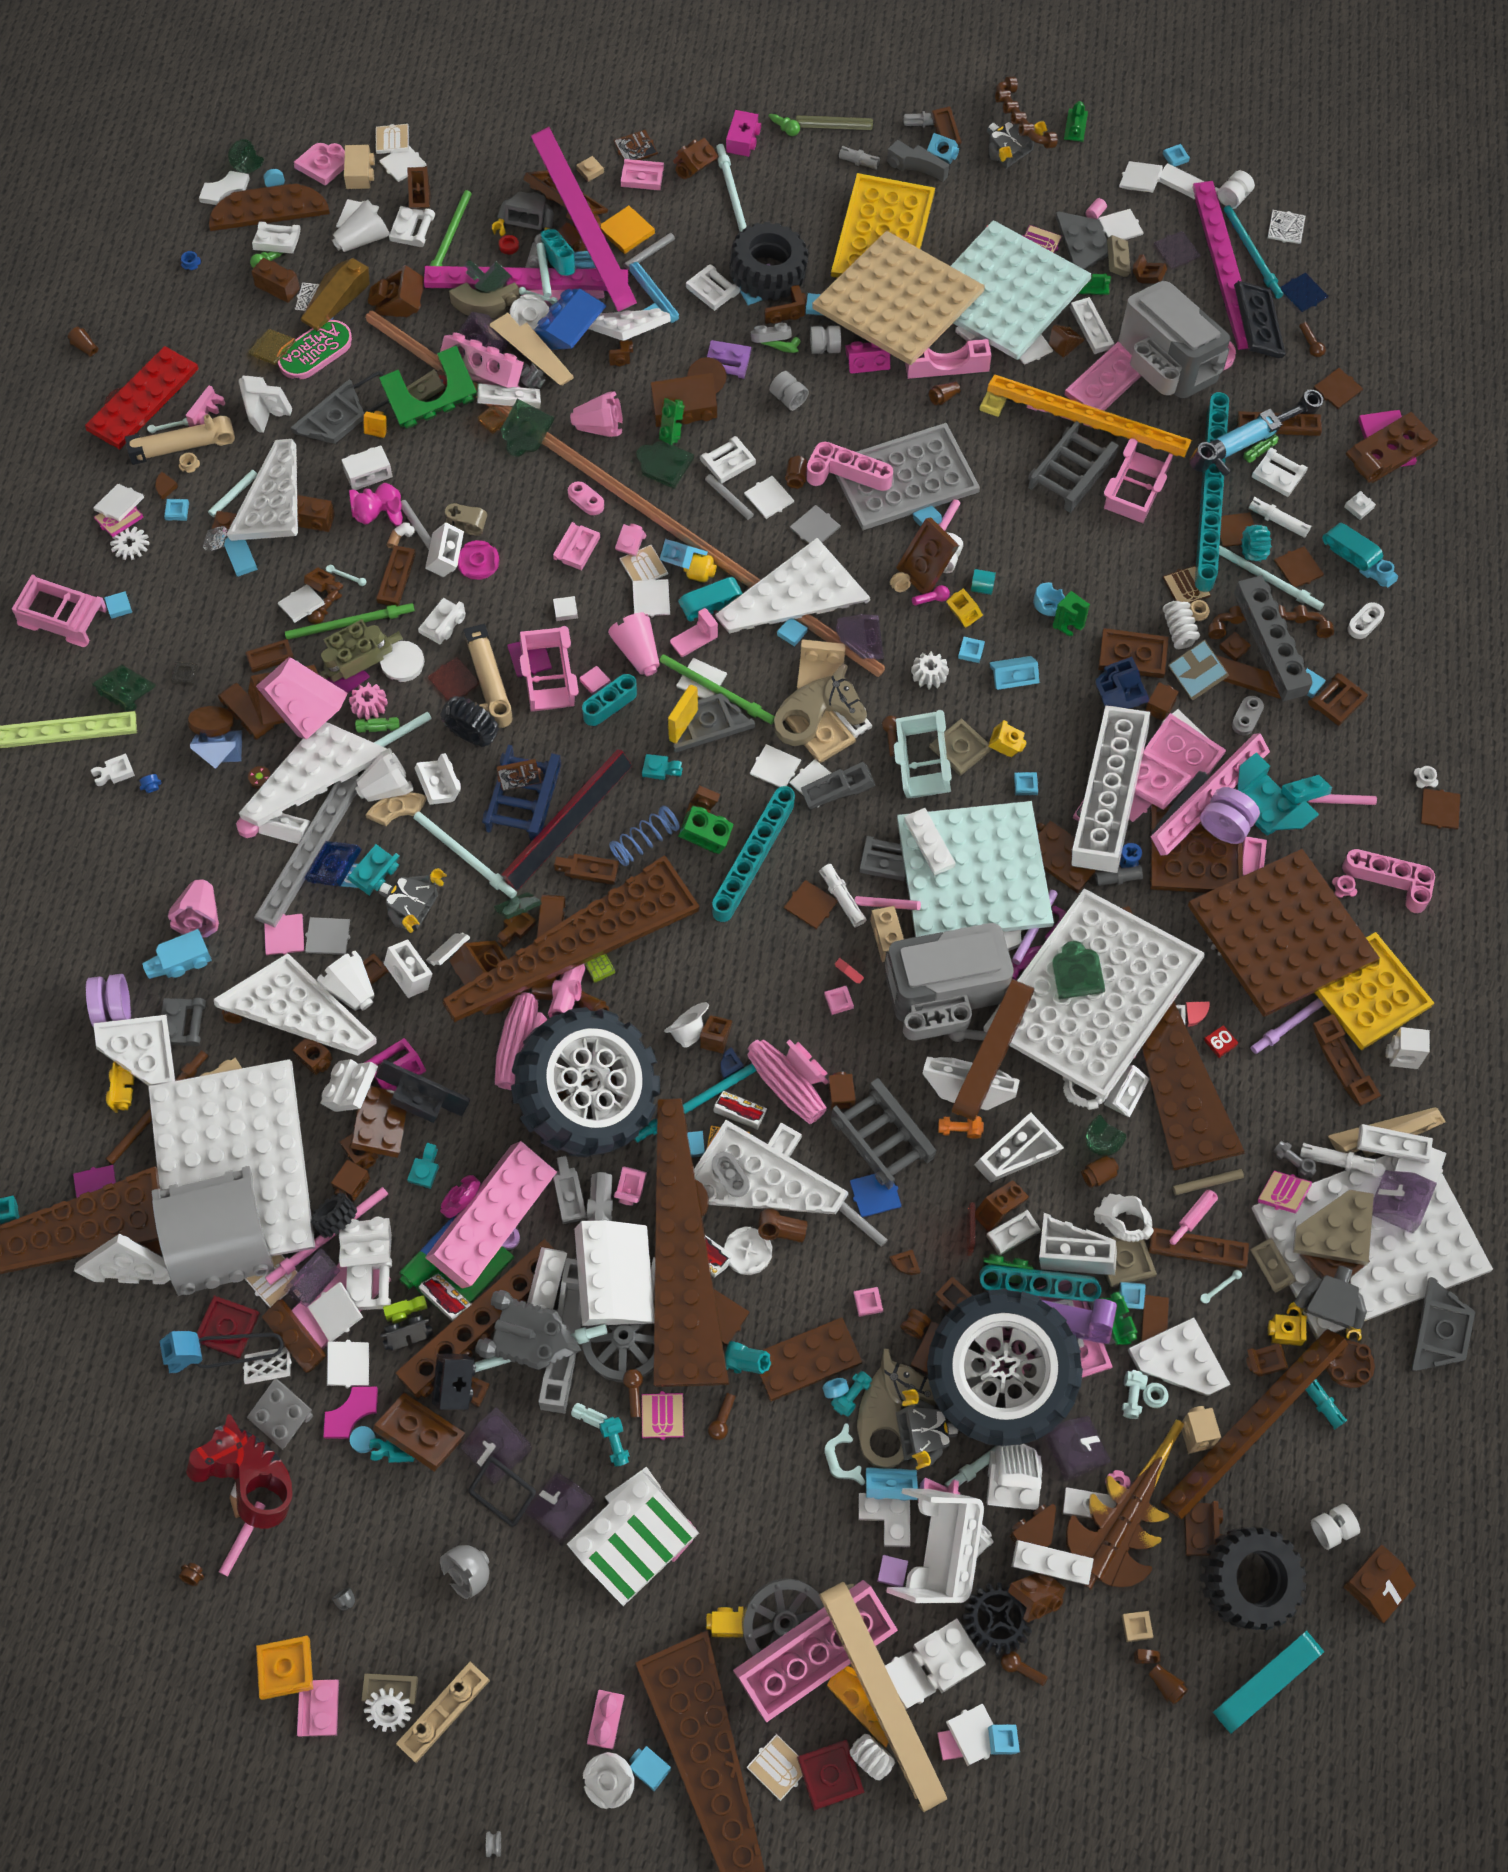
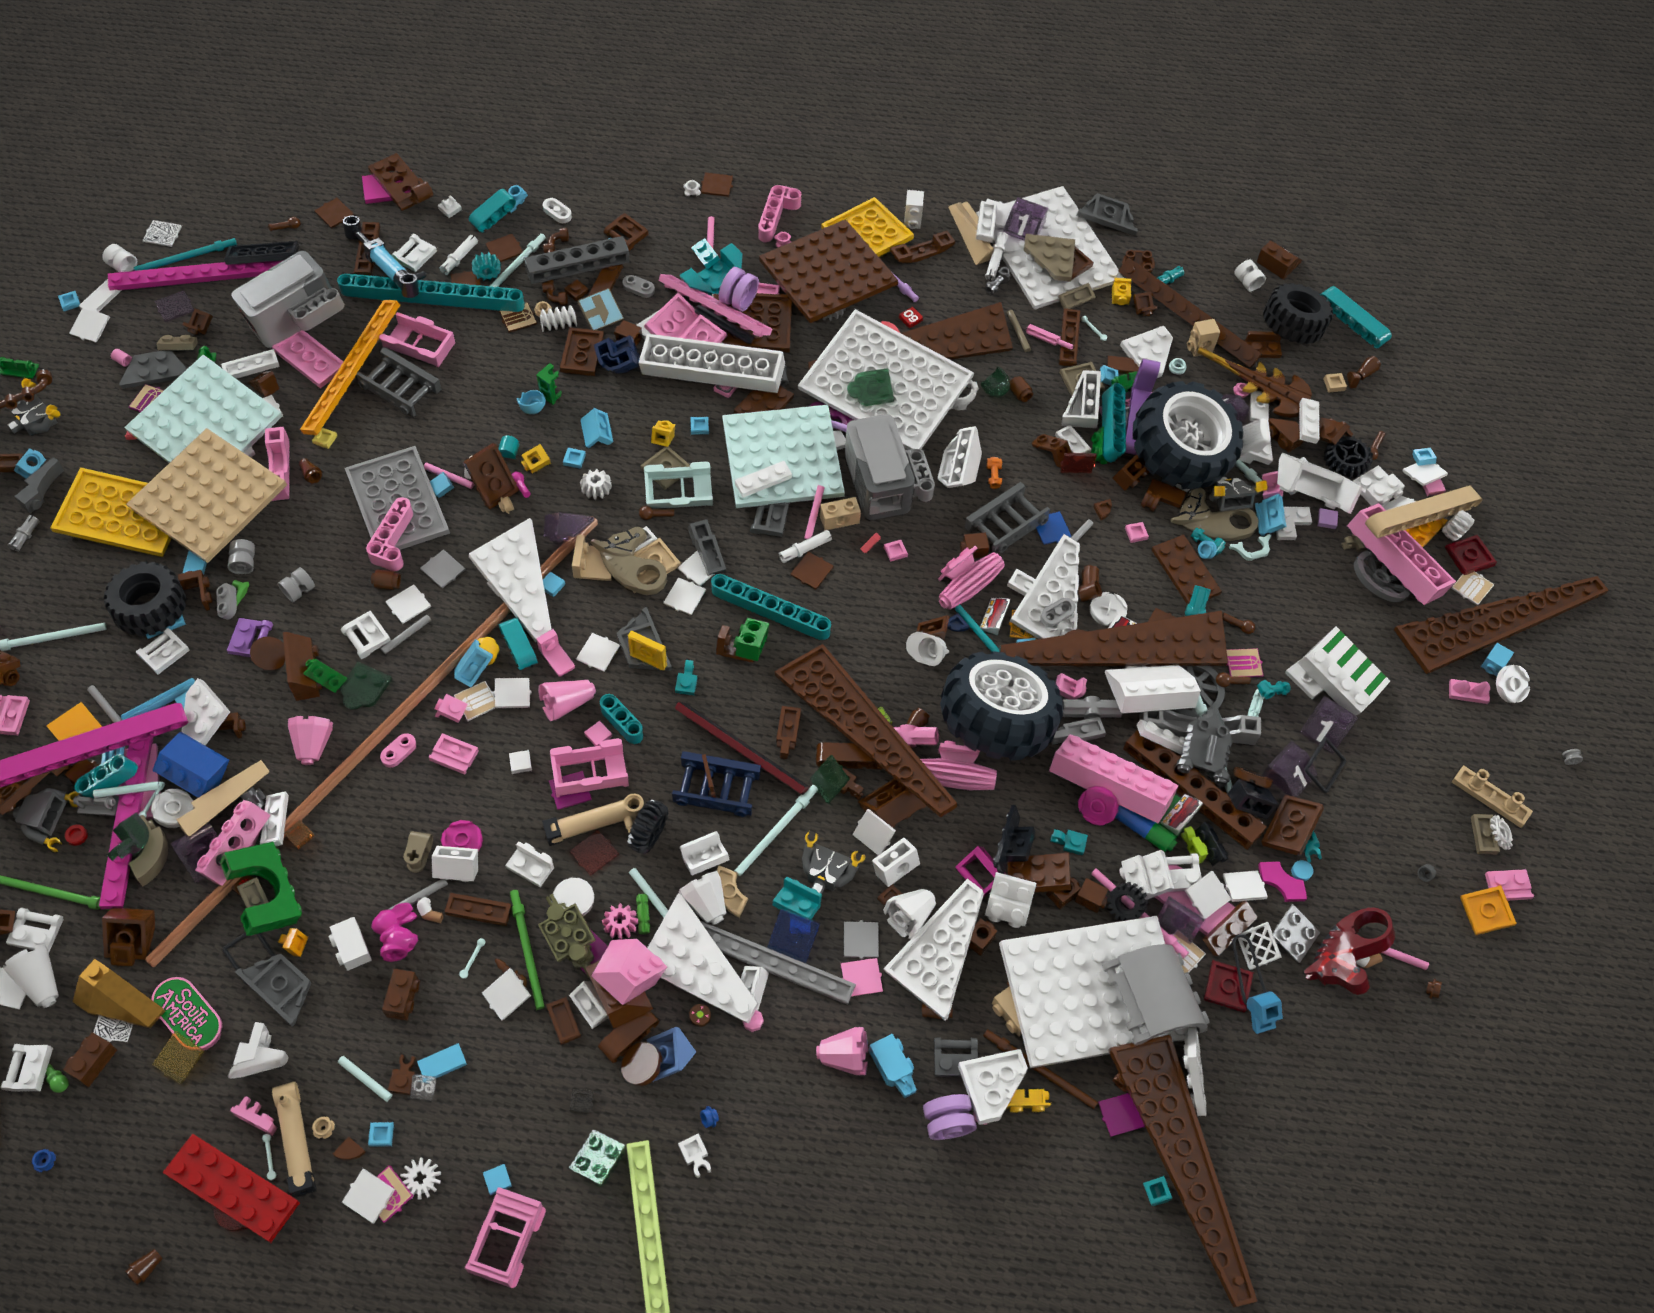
camera: 95 degrees left, 5 degrees down
(272, 499) = (388, 1030): white wing -> none
(322, 580) = (482, 976): reddish brown plate -> none
(467, 1568) = (1392, 780): light grey cylinder -> none
(486, 1389) = (1248, 775): none -> reddish brown tile
(525, 428) = (317, 801): clear green plate -> none
(624, 852) = (773, 699): medium blue piece -> none
(725, 1622) = (1387, 614): yellow brick -> none
(752, 708) = (629, 611): bright green bar -> none
(866, 357) = (262, 527): dark pink bracket -> none
(993, 1050) = (948, 437): reddish brown beam -> none
(1020, 1148) = (1012, 435): white wedge -> none
(1117, 1204) = (1052, 385): white piece -> none
(1121, 224) = (141, 342): white piece -> none
(1135, 1381) = (1169, 376): light aqua bar -> none
(1285, 1192) = (1024, 286): piece -> none
(1303, 292) = (233, 226): clear blue piece -> none
(1333, 1301) = (1104, 262): dark grey torso -> none

